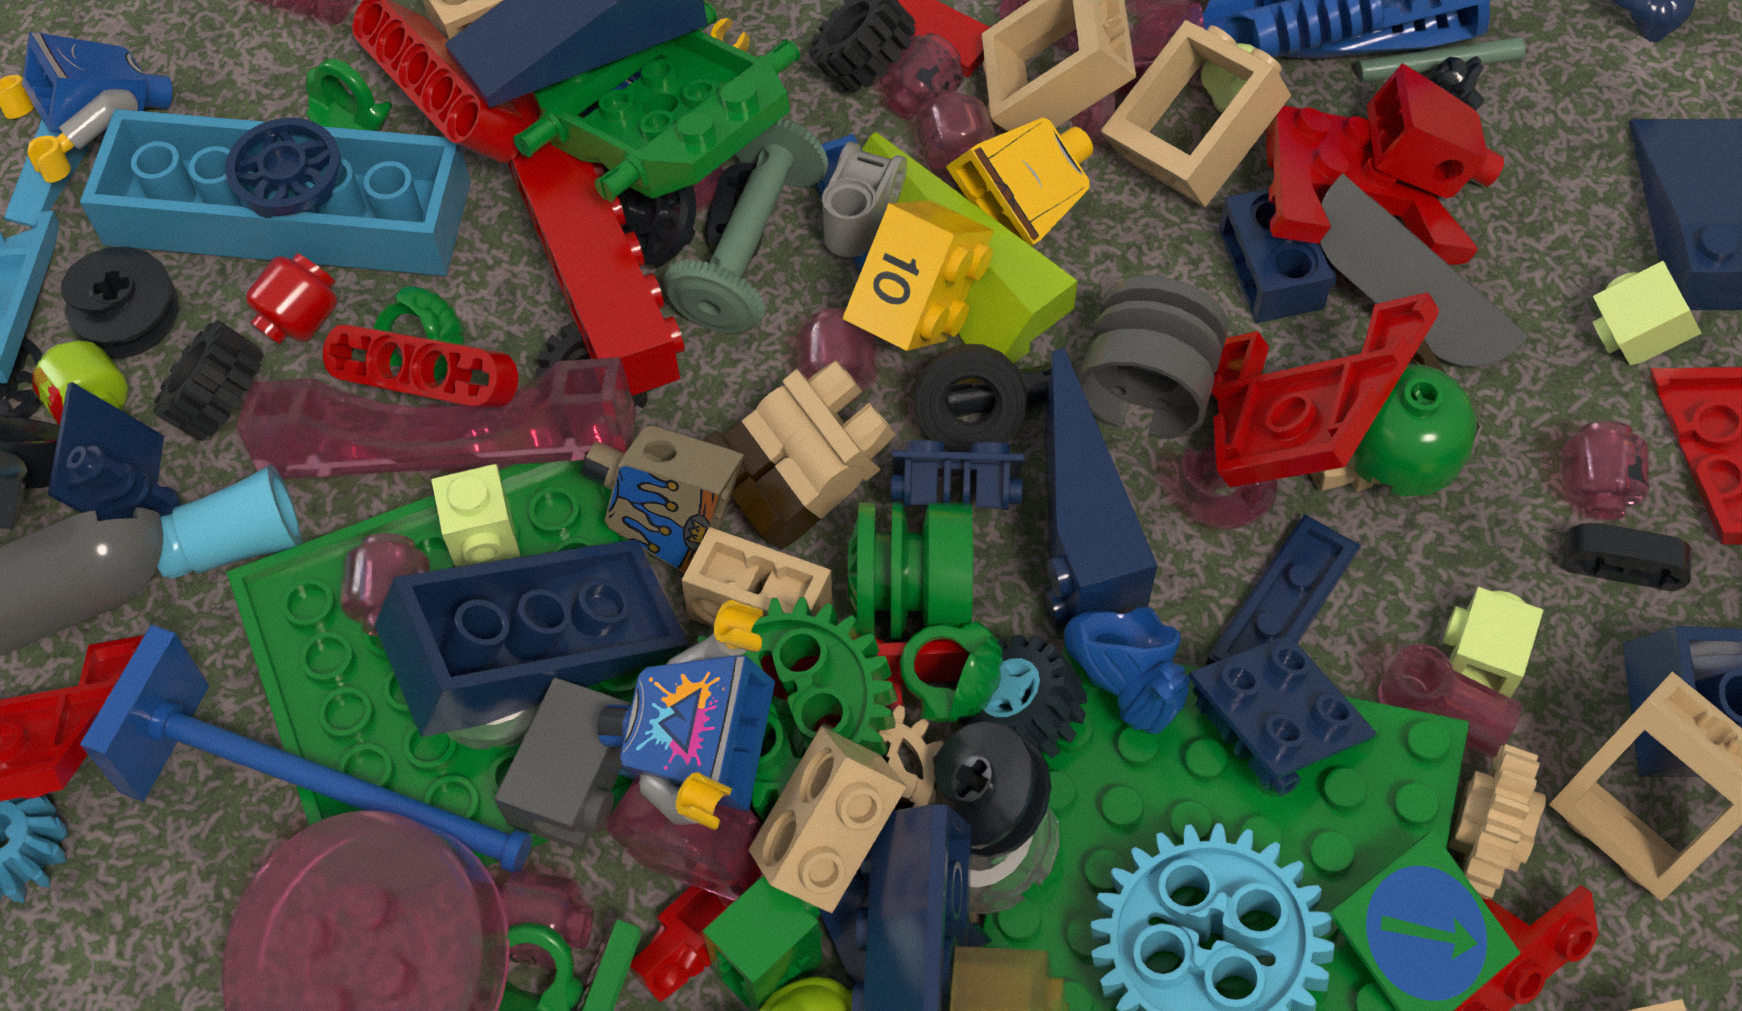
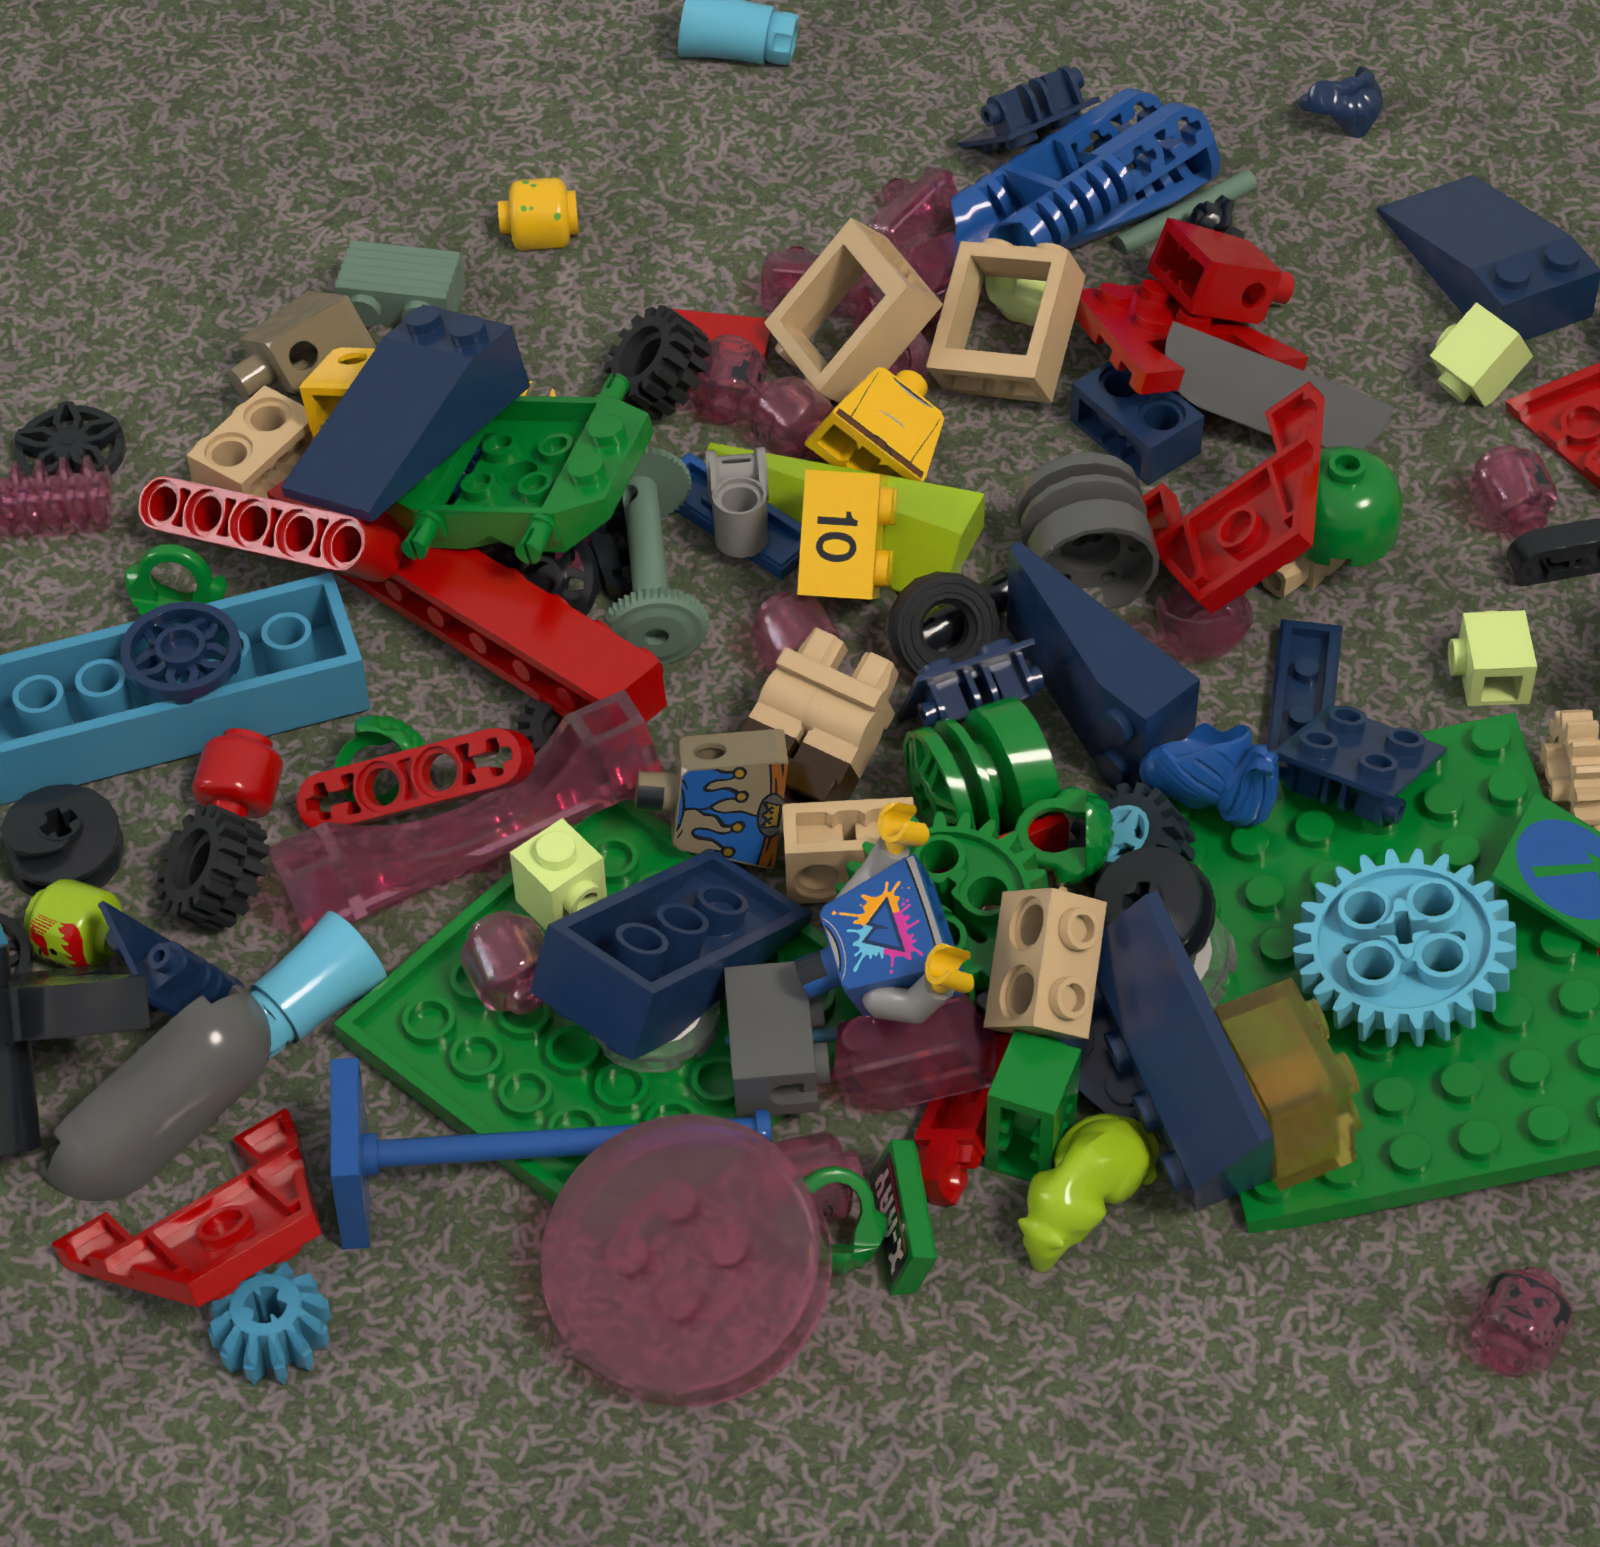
camera: 25 degrees left, 10 degrees down
(1450, 695) = (1459, 699): clear pink piece -> none

